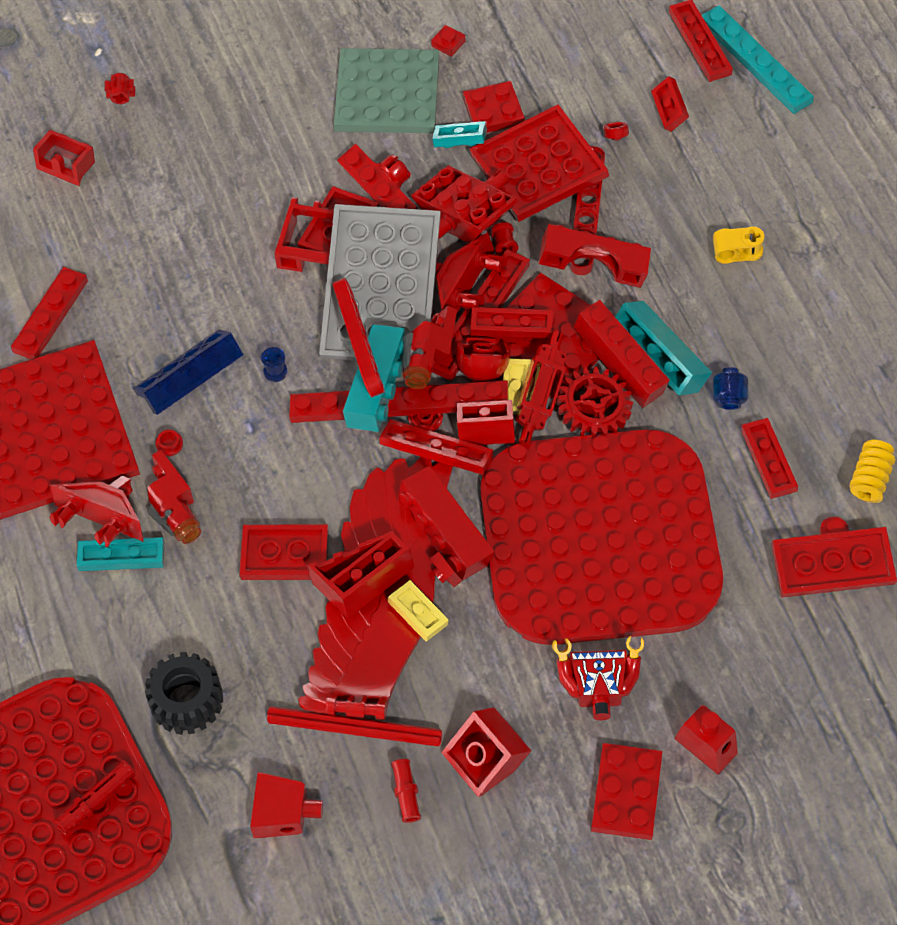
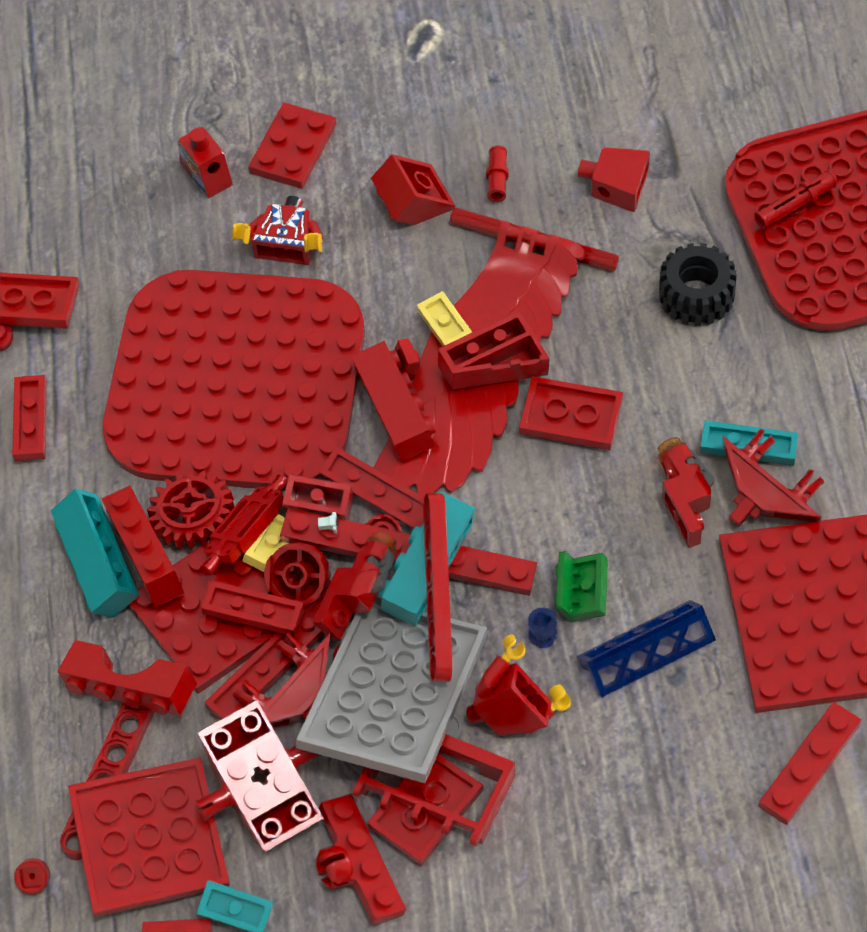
camera: 165 degrees left, 0 degrees up
(169, 442) = (680, 561): red plate -> none
(248, 402) = (581, 586): none -> green bracket
(282, 290) = (511, 699): none -> red torso
(467, 390) = (328, 523): none -> light aqua piece
(730, 389) = (37, 496): clear blue head -> none

